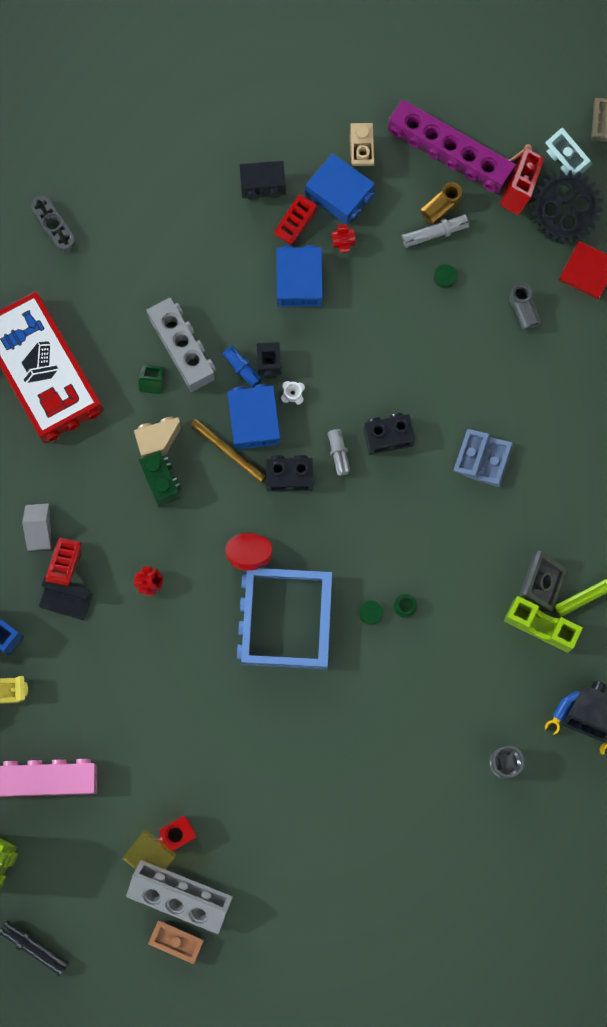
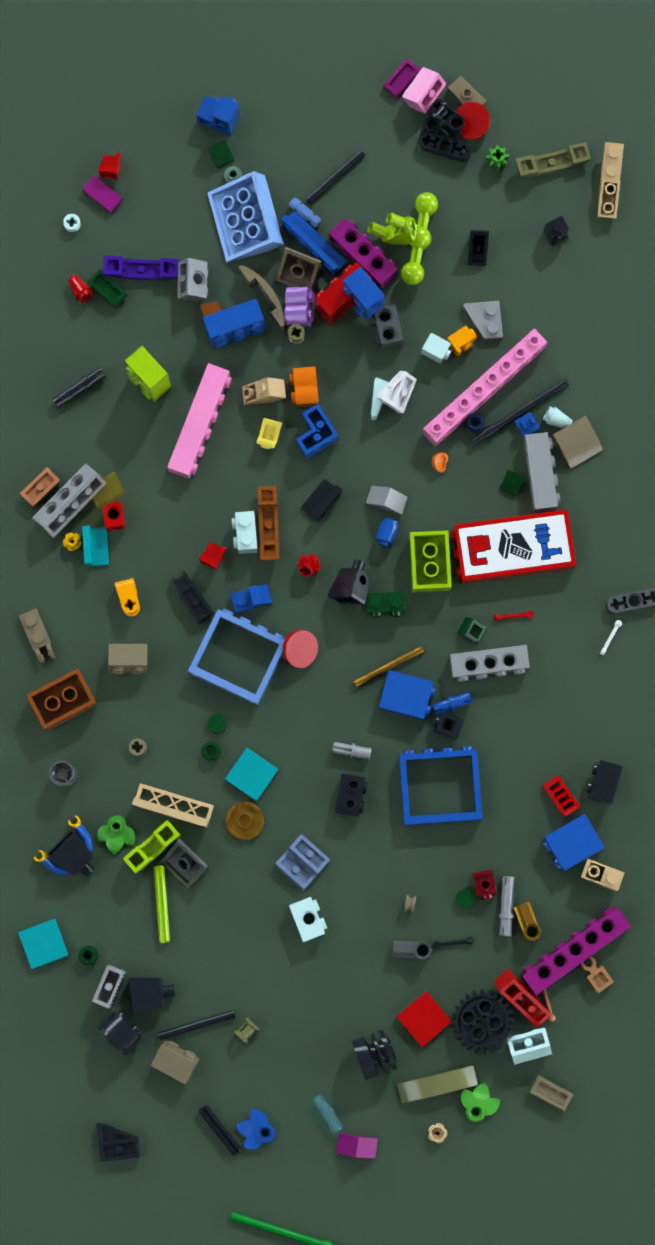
camera: 115 degrees right, 5 degrees up
(65, 554) = (358, 513): red slope -> none
(76, 509) = (387, 532): none -> blue brick
(91, 447) = (430, 561): none -> lime brick
(111, 327) = (529, 614): none -> red hinge
(117, 648) = (268, 523): none -> dark orange slope
(120, 235) = (618, 623): none -> white hinge
(137, 668) = (246, 532): none -> light aqua brick
(153, 522) = (351, 585): none -> black torso
(157, 436) = (418, 614): tan slope -> none
(179, 696) = (213, 555): none -> red panel
(212, 633) = (251, 598): none -> blue slope
(221, 841) = (95, 546): none -> teal panel
(222, 877) = (72, 546): none -> yellow plate
(239, 699) = (193, 599): none -> black hinge
(263, 779) = (128, 594): none -> light orange piece
(288, 387) = (420, 734): white plate -> none
(289, 473) = (349, 704): black brick -> none
(299, 276) = (510, 778): blue brick -> none
(340, 743) = (128, 658): none -> dark tan brick
(343, 238) = (528, 827): red gear -> none
(355, 868) = (36, 633): none -> dark tan hinge
(372, 329) = (440, 818): none -> blue window
(411, 550) = (251, 774): none -> teal tile
(418, 266) = (478, 878): none -> dark red brick
(422, 800) = (62, 700): none -> dark orange brick
(443, 693) = (141, 742): none -> dark tan bush
(465, 538) = (244, 820): none -> pearl gold tile
(466, 117) = (598, 976): none -> medium nougat plate
(477, 327) = (409, 903): none -> dark tan bush
(494, 622) = (184, 816): none -> tan fence
(506, 286) = (469, 940): none -> black hinge
(537, 438) = (298, 911): none -> light aqua brick
(547, 671) = (116, 837): none -> bright green plate

